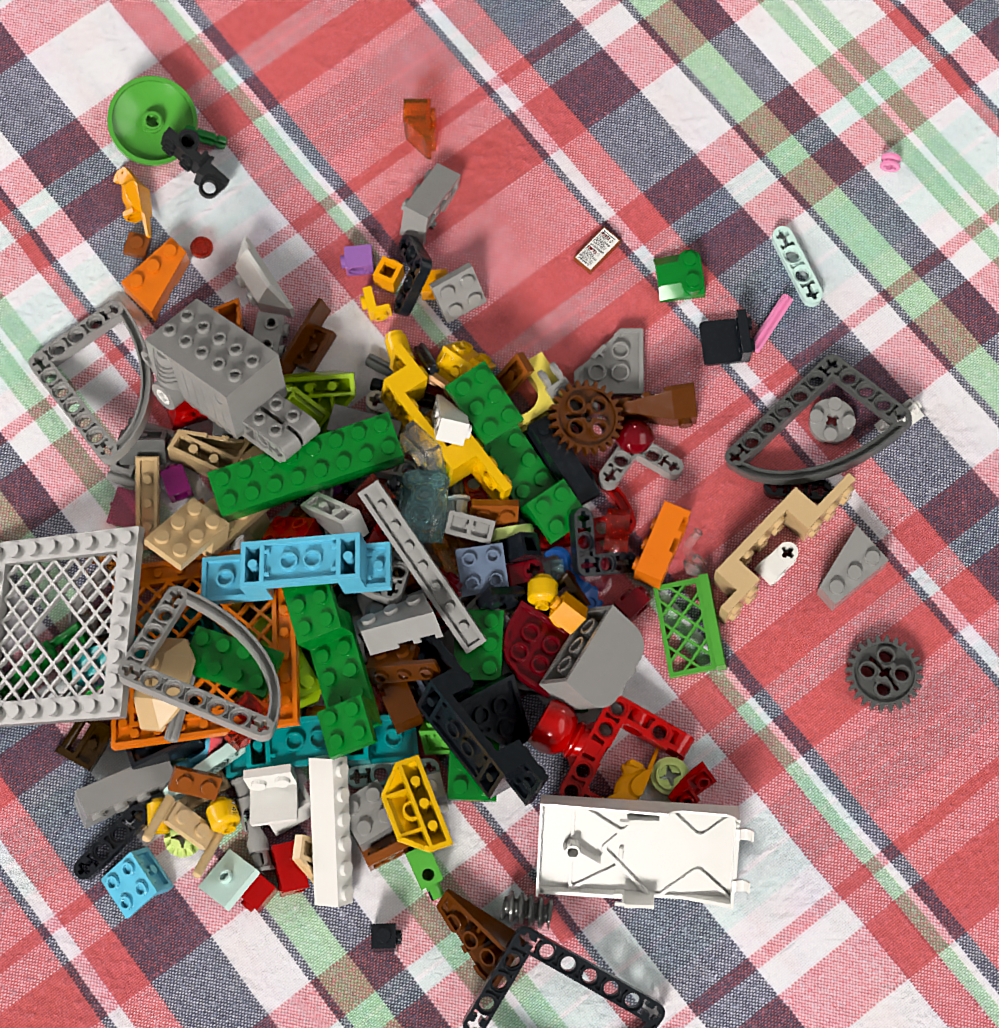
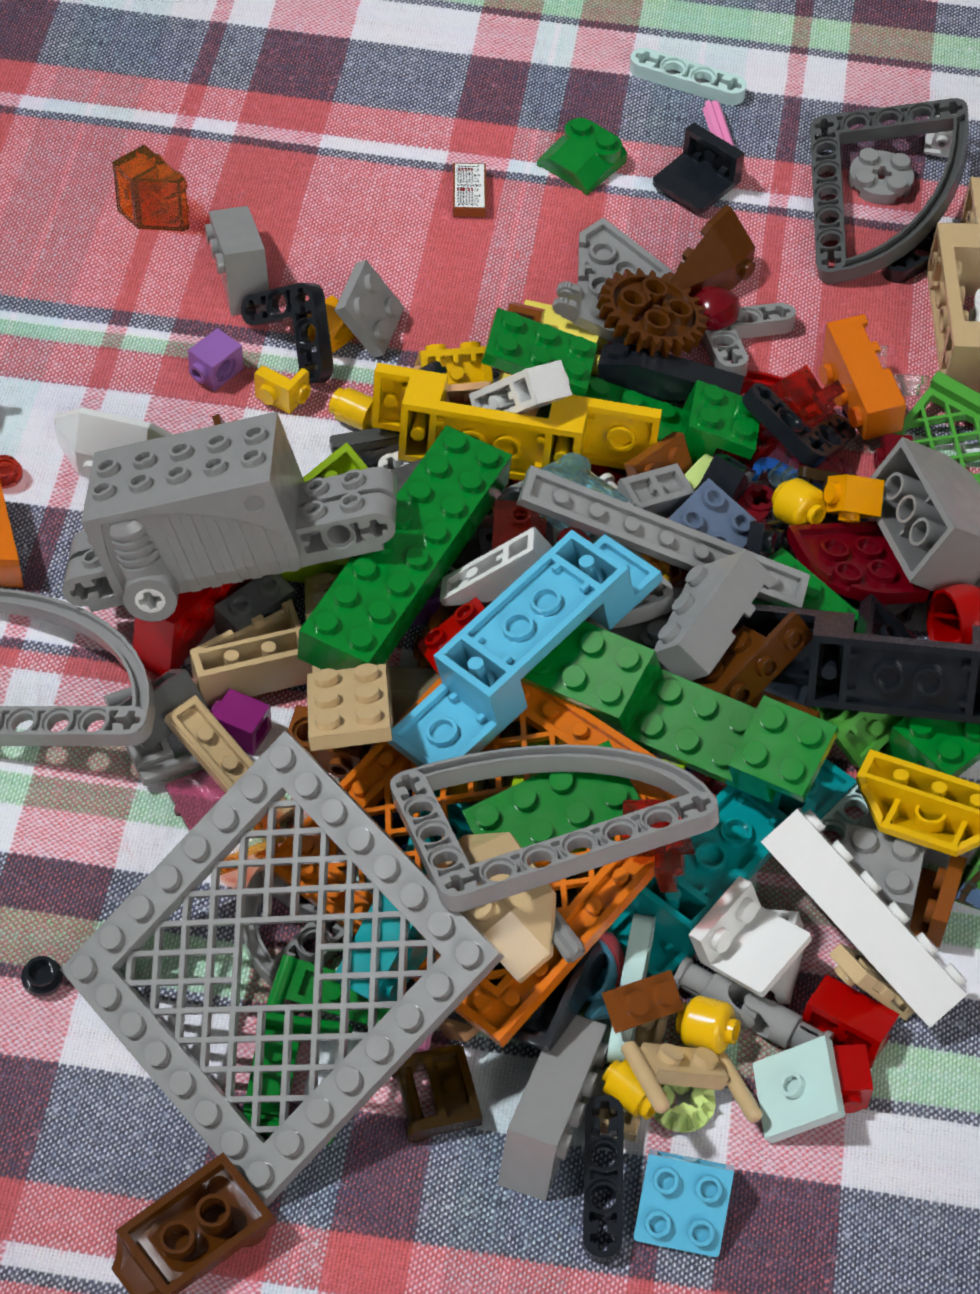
camera: 50 degrees left, 20 degrees down
(388, 274) = (269, 344): light orange brick -> none
(422, 448) = (526, 437): clear slope -> none

